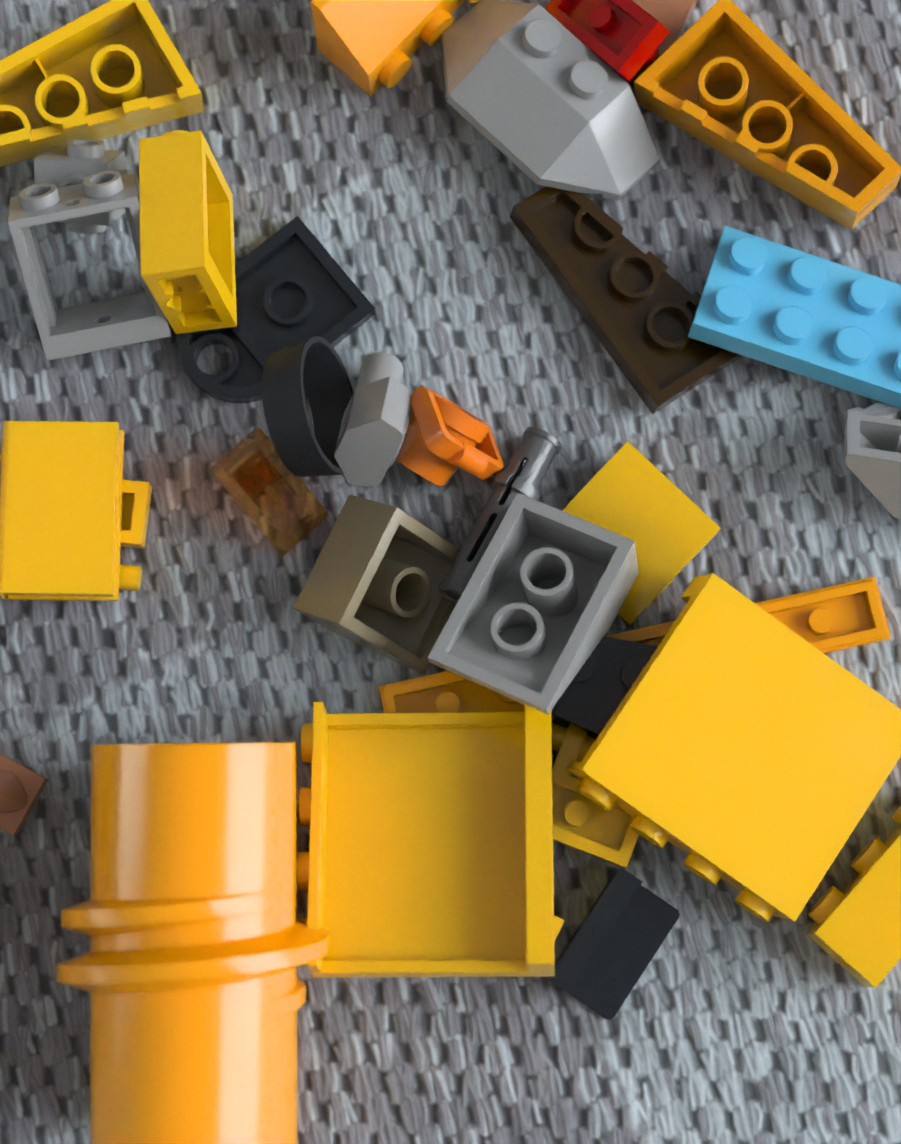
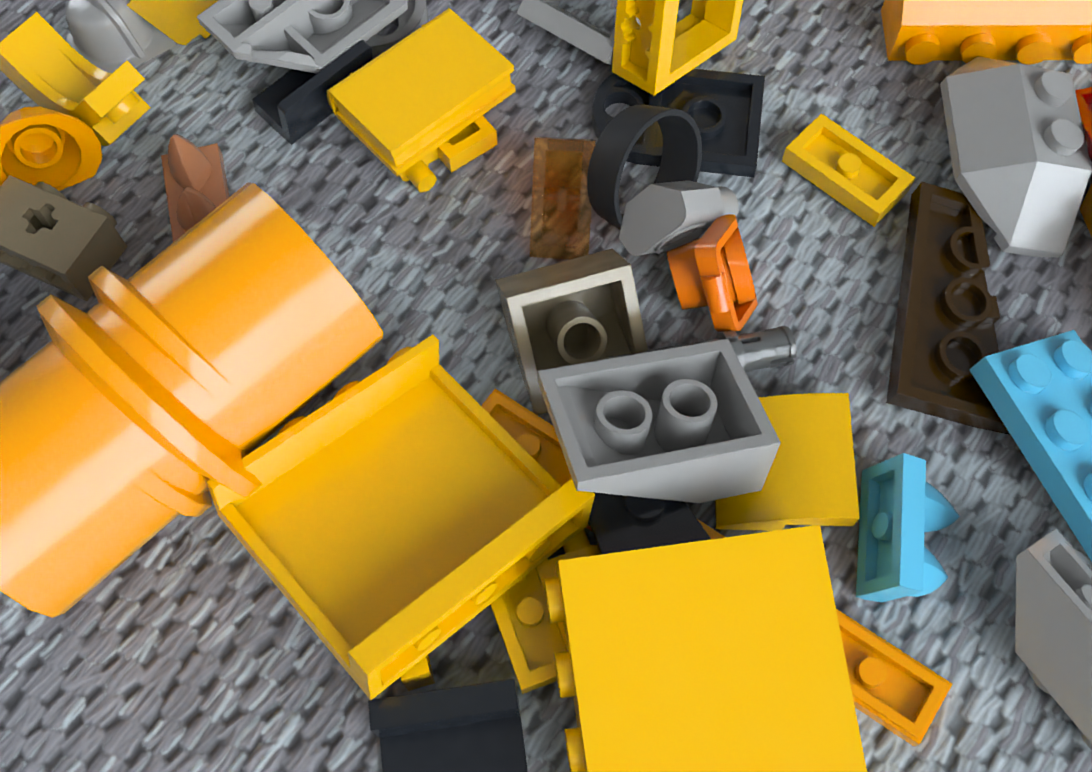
camera: 50 degrees right, 15 degrees down
(443, 242) = (847, 169): none -> yellow plate
(733, 493) = (894, 515): none -> medium azure tile

